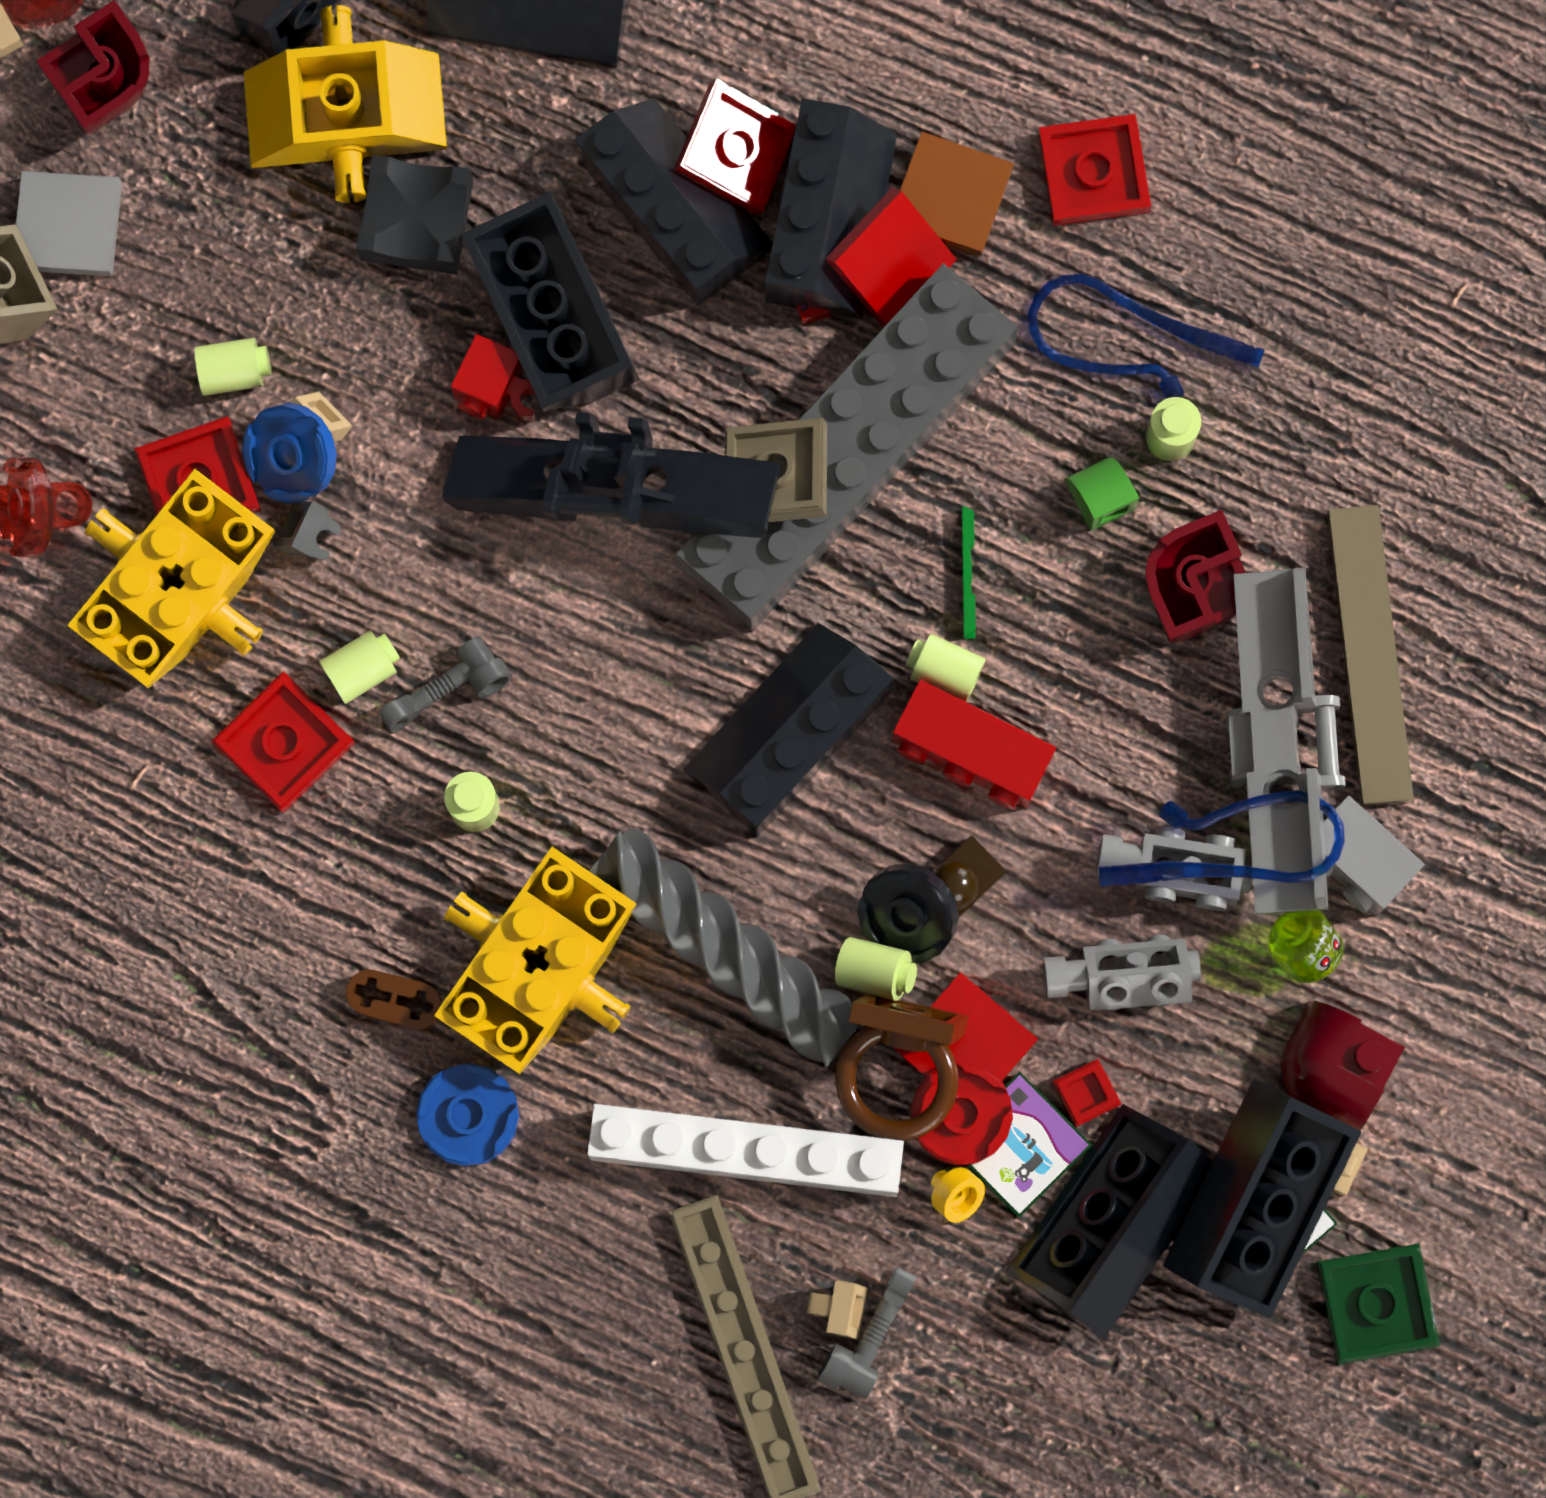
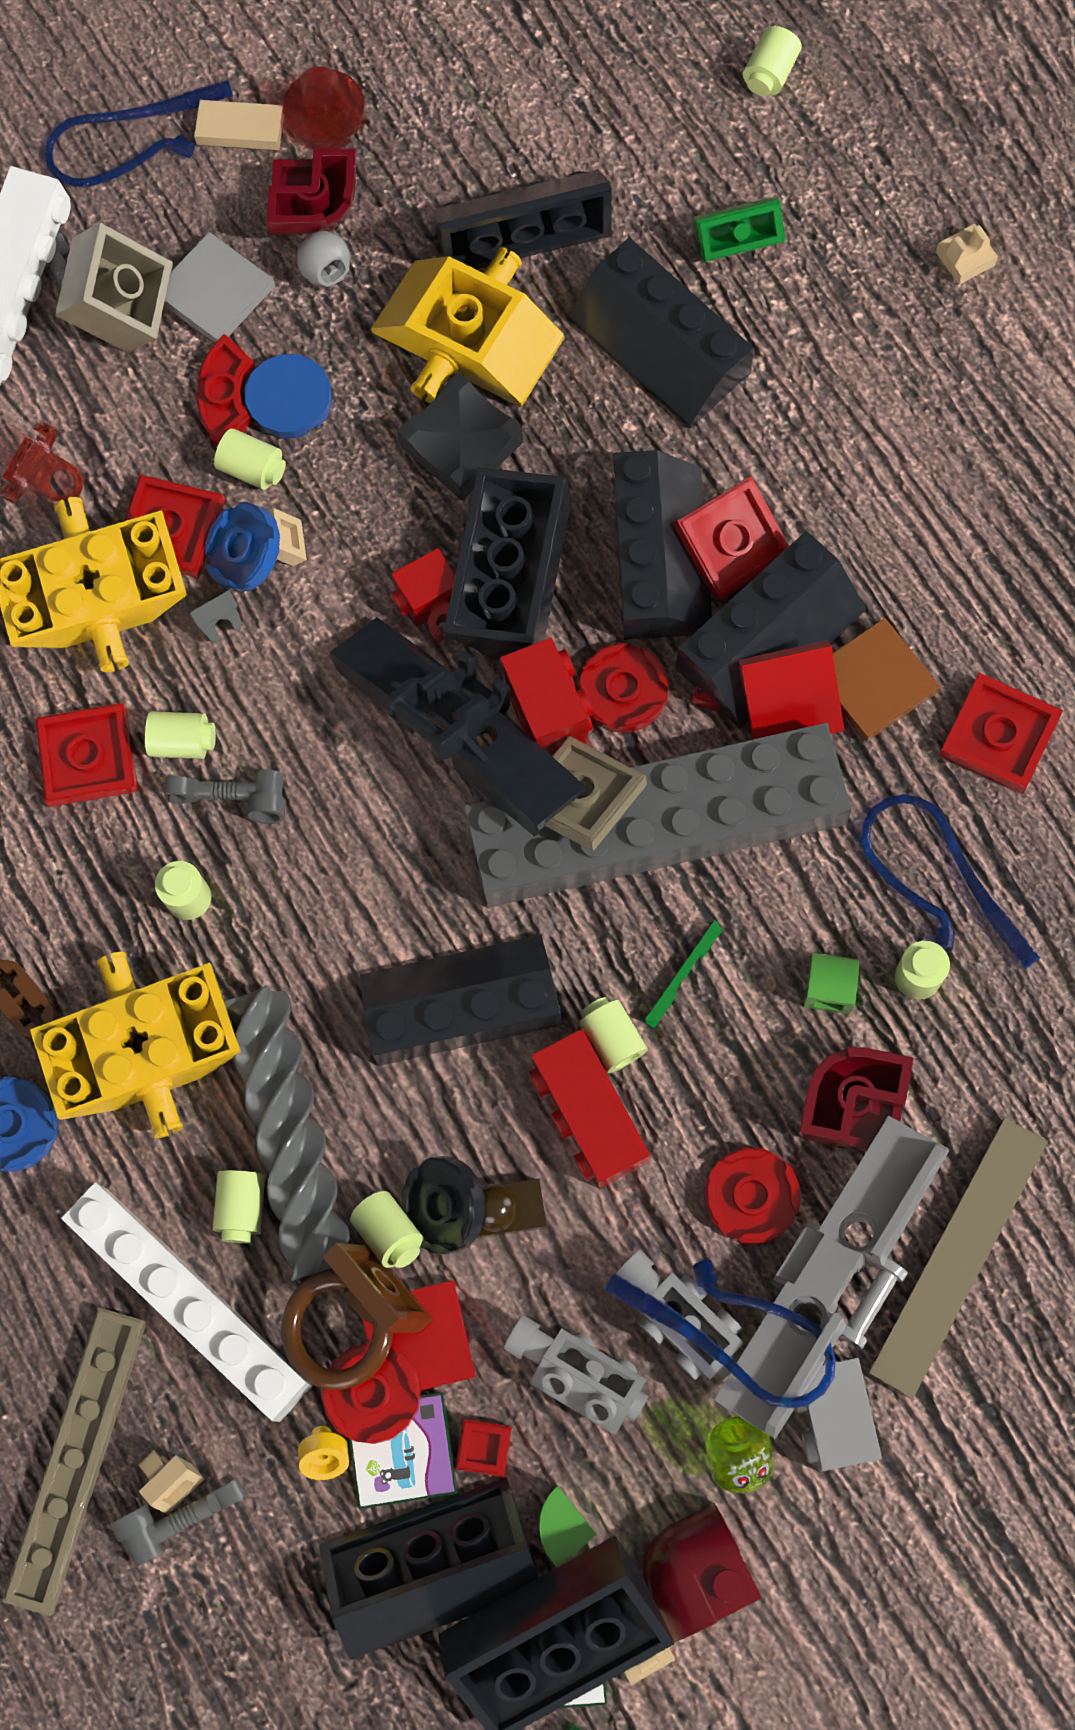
camera: 40 degrees right, 5 degrees down
(149, 319) = (221, 389): none -> red tile
(156, 126) = (323, 258): none -> light grey piece
(218, 281) = (288, 395): none -> blue tile
(679, 405) = (546, 695): none -> red brick
(728, 1039) = (238, 1205): none -> yellowish green brick
(731, 351) = (624, 687): none -> red tile
(1162, 724) = (752, 1196): none -> red tile
(1201, 1109) = (562, 1528): none -> bright green brick

